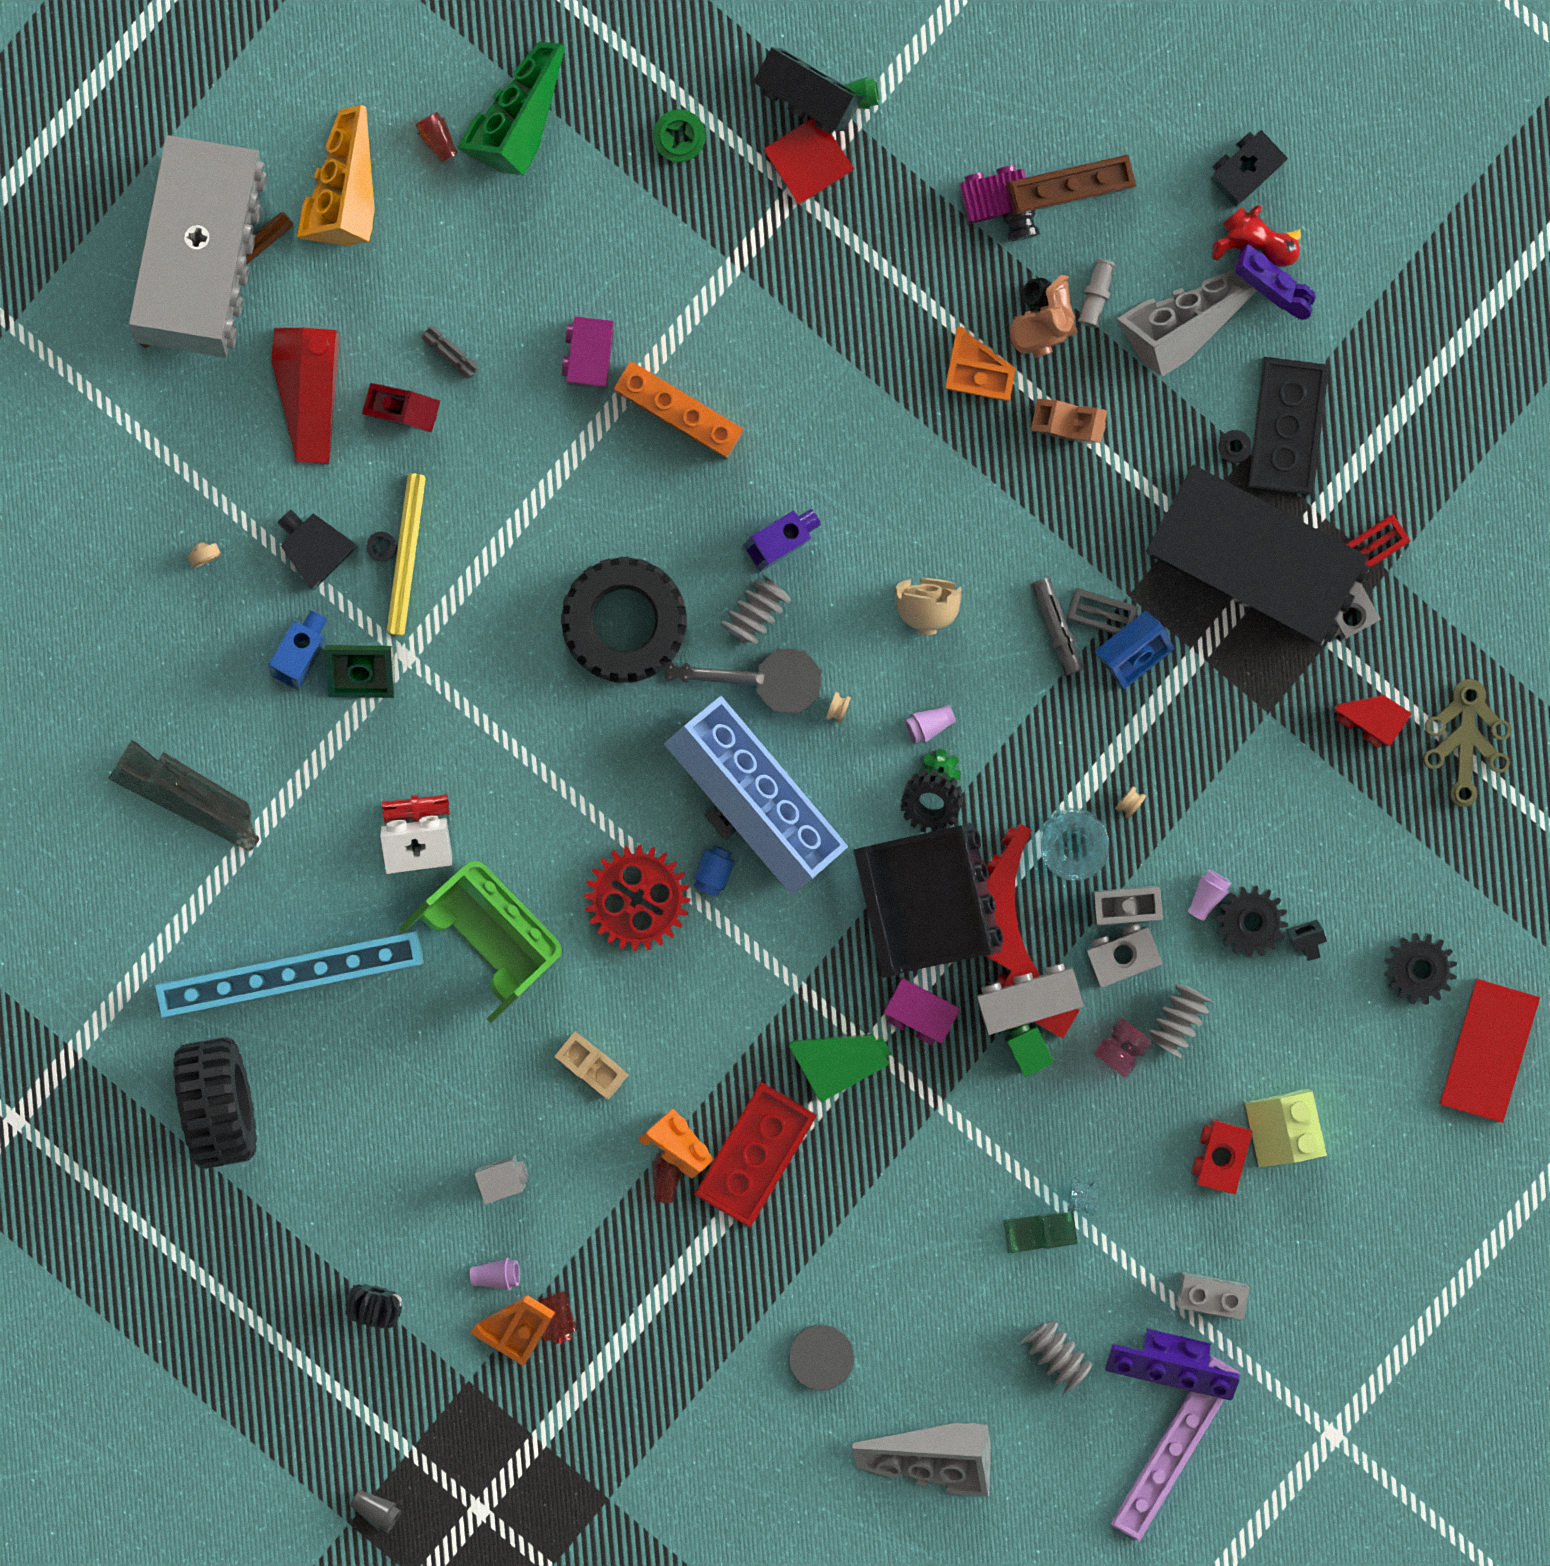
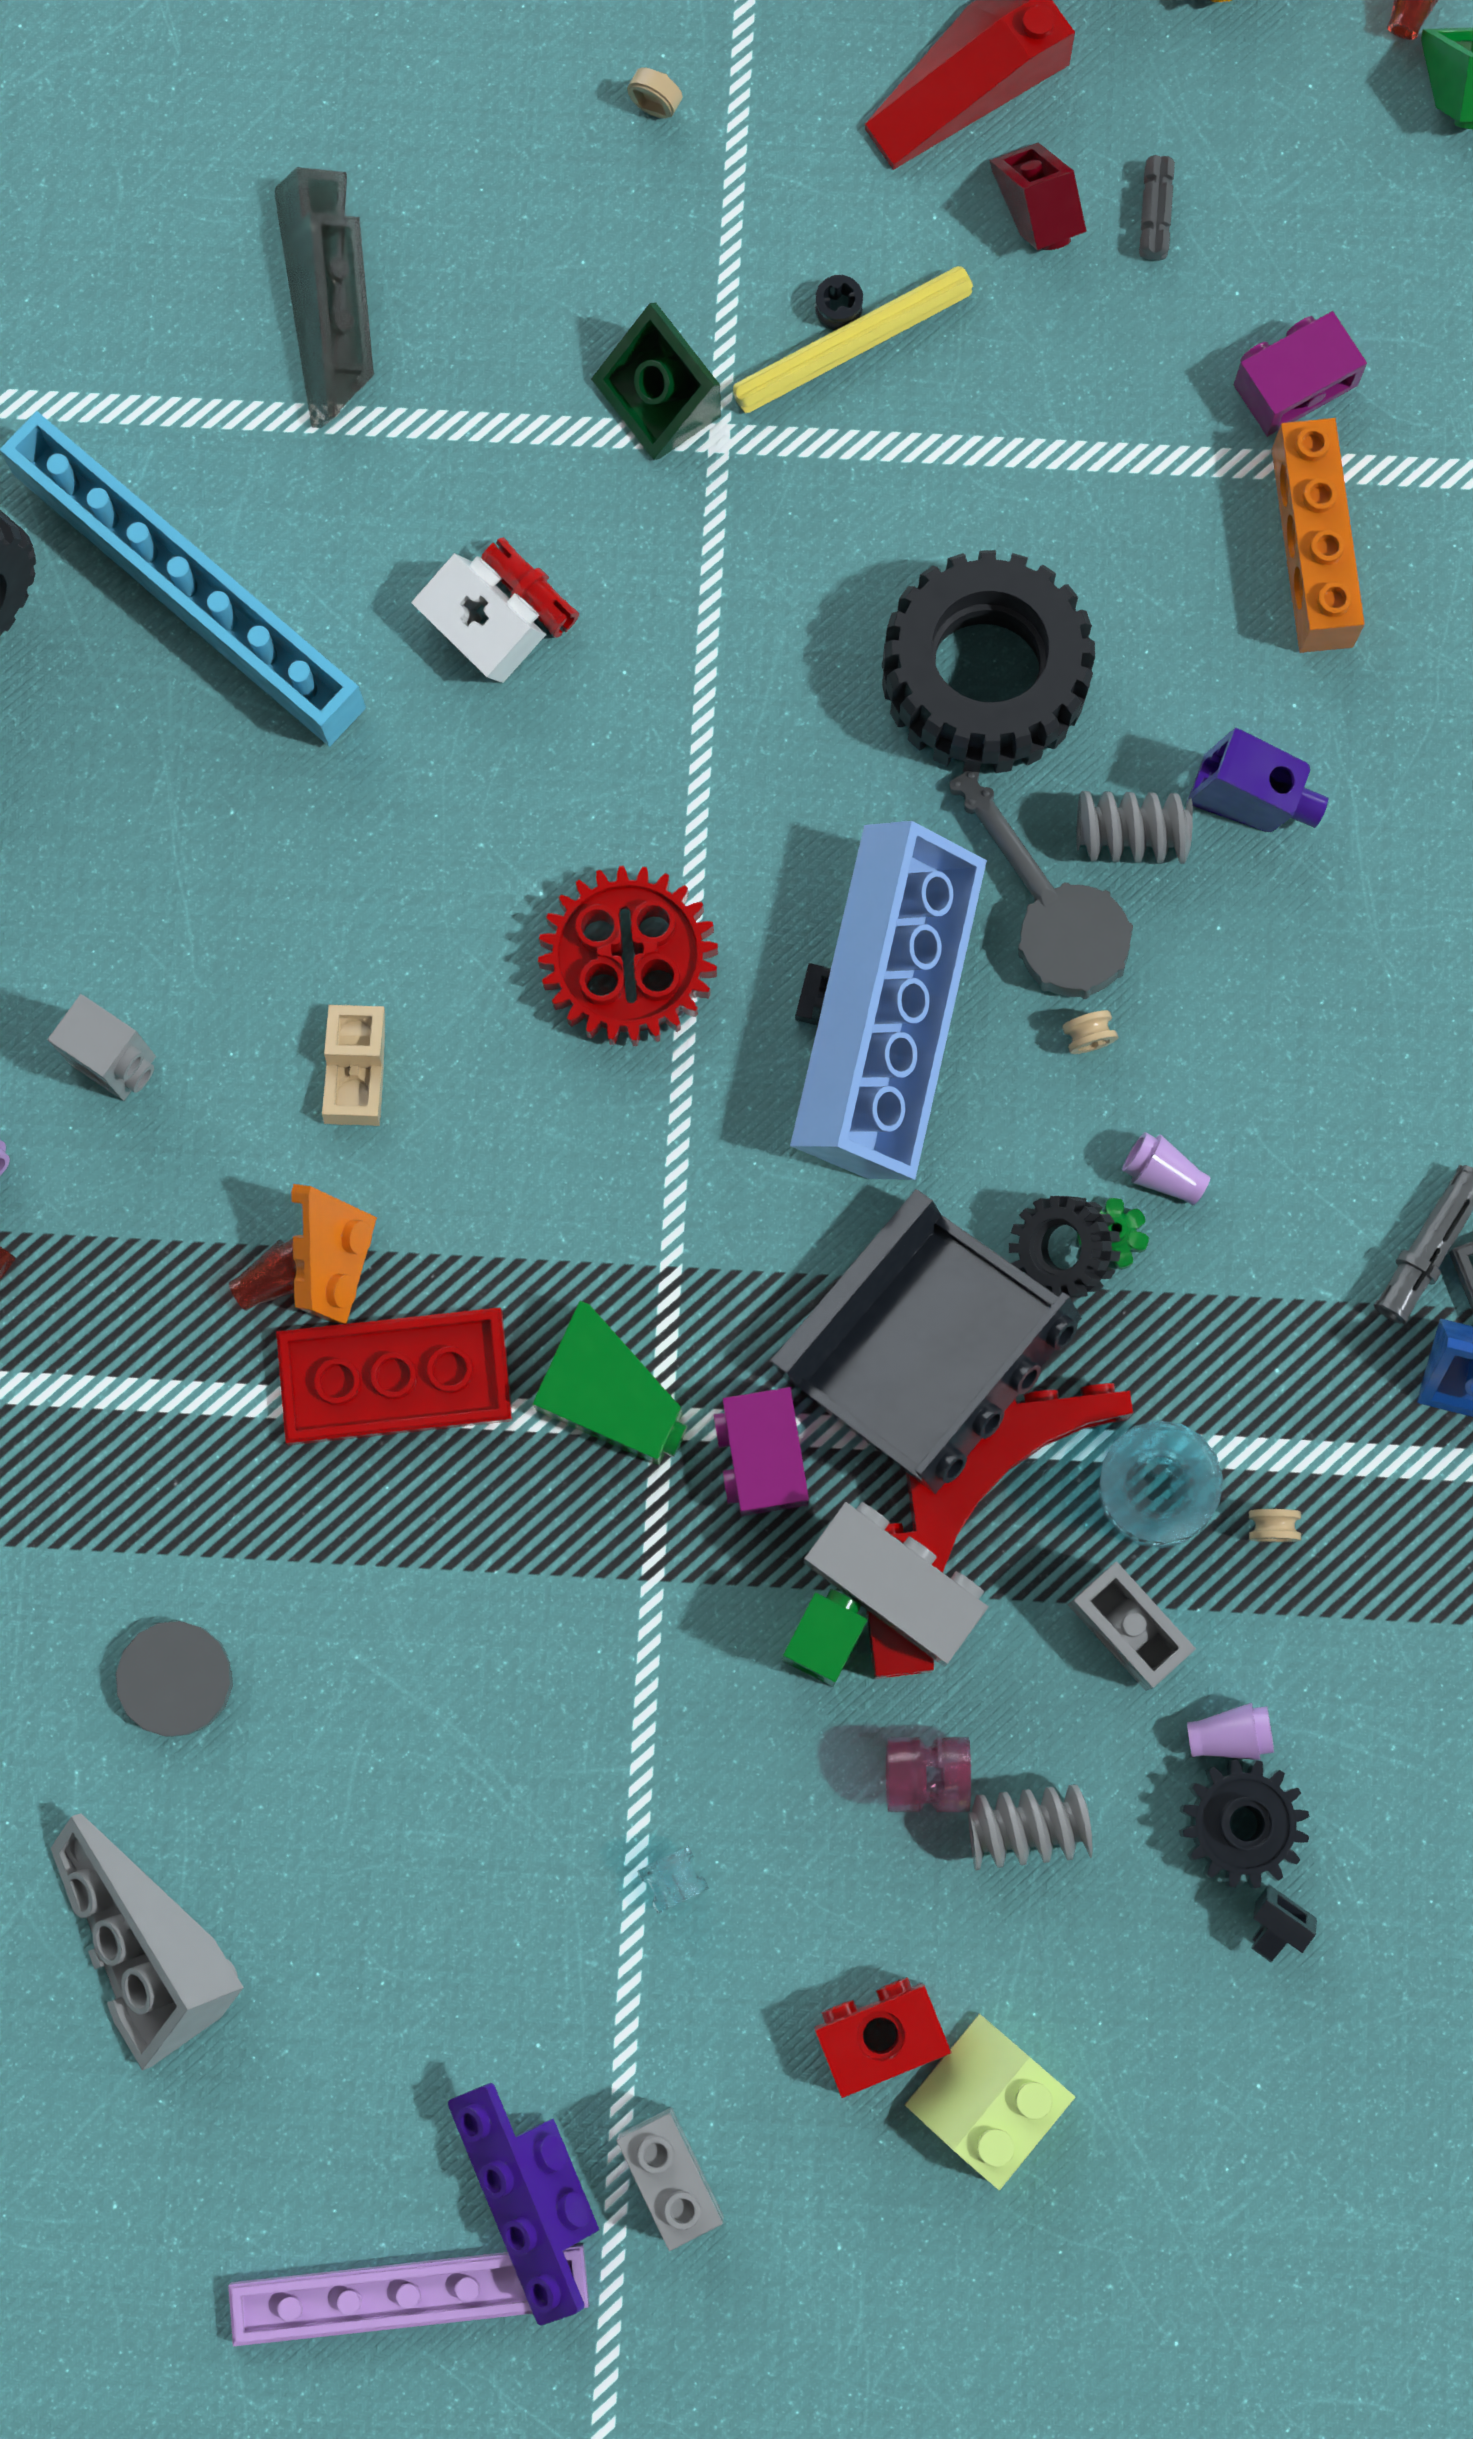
camera: 55 degrees right, 10 degrees down
(294, 663) = (614, 284): blue torso -> none
(314, 547) = (771, 219): black torso -> none
(495, 926) = (450, 794): bright green windscreen -> none
(714, 870) = (742, 1030): blue brick -> none
(928, 605) = (1323, 1045): tan cylinder -> none
(1040, 1232) = (579, 1857): clear green slope -> none
(1058, 1354) = (420, 2015): light grey piece -> none
(1143, 955) = (1020, 1674): light grey brick -> none
(1436, 975) = (1397, 2127): black gear -> none
(1489, 1050) = (1327, 2319): red tile -> none

